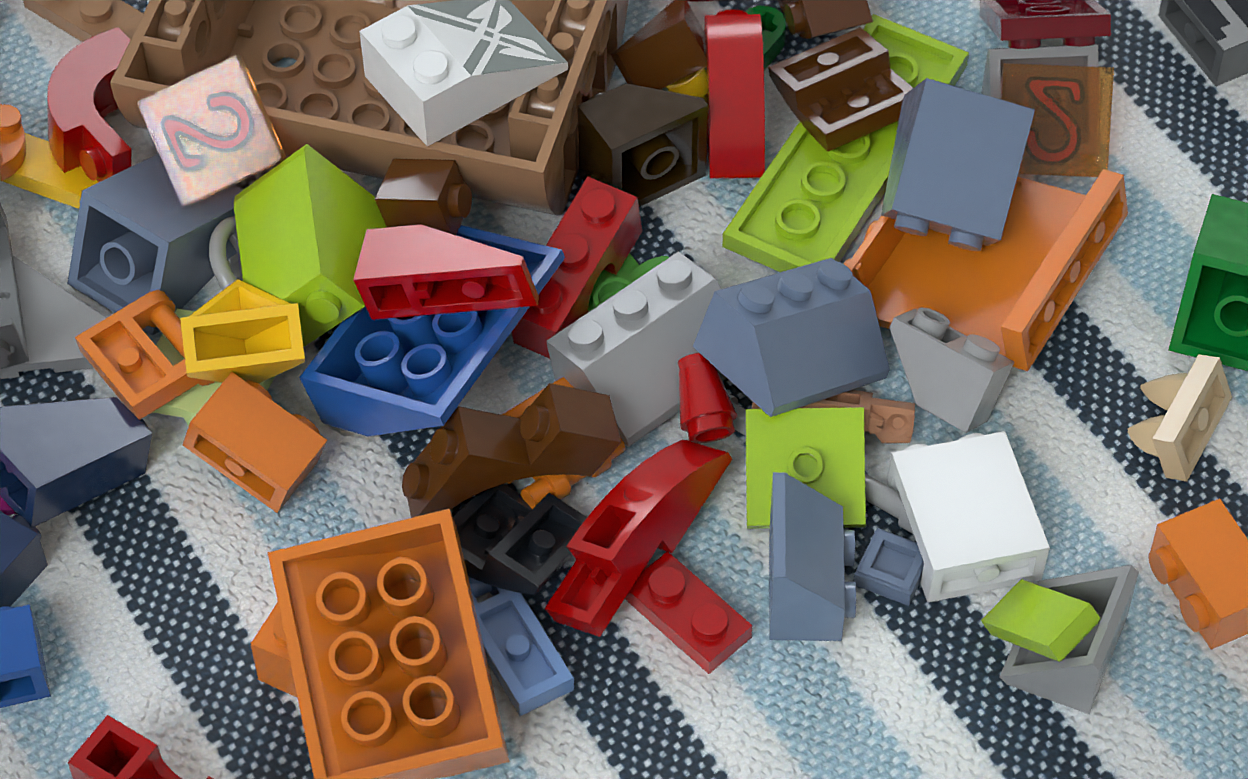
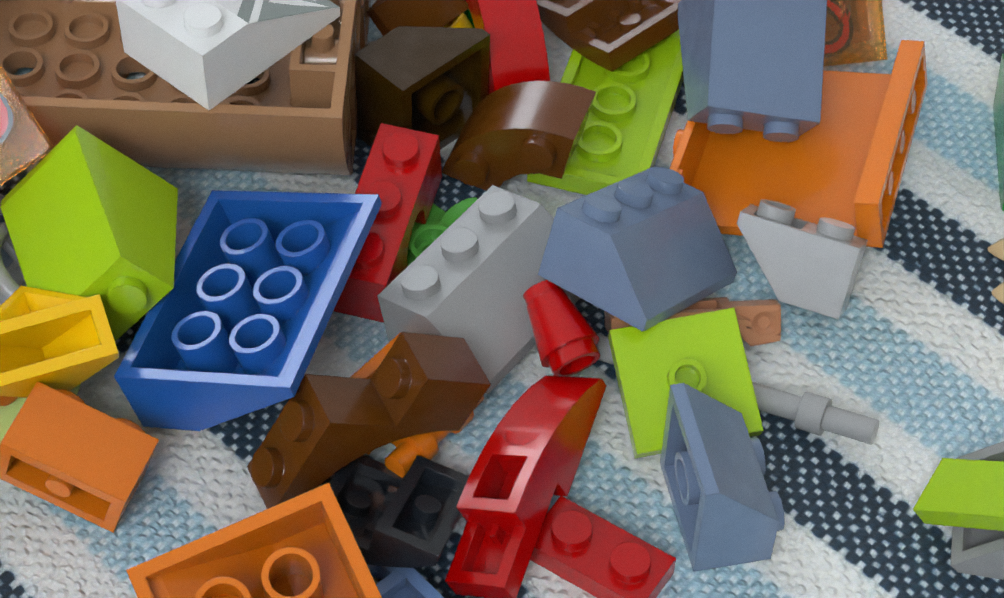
camera: 15 degrees left, 5 degrees down
(424, 194) = (213, 169): reddish brown brick -> none
(435, 272) = (252, 237): red slope -> none
(721, 202) = (520, 131): none -> reddish brown brick
(890, 567) = (802, 469): sand blue tile -> none
(969, 515) = (871, 401): white panel -> none

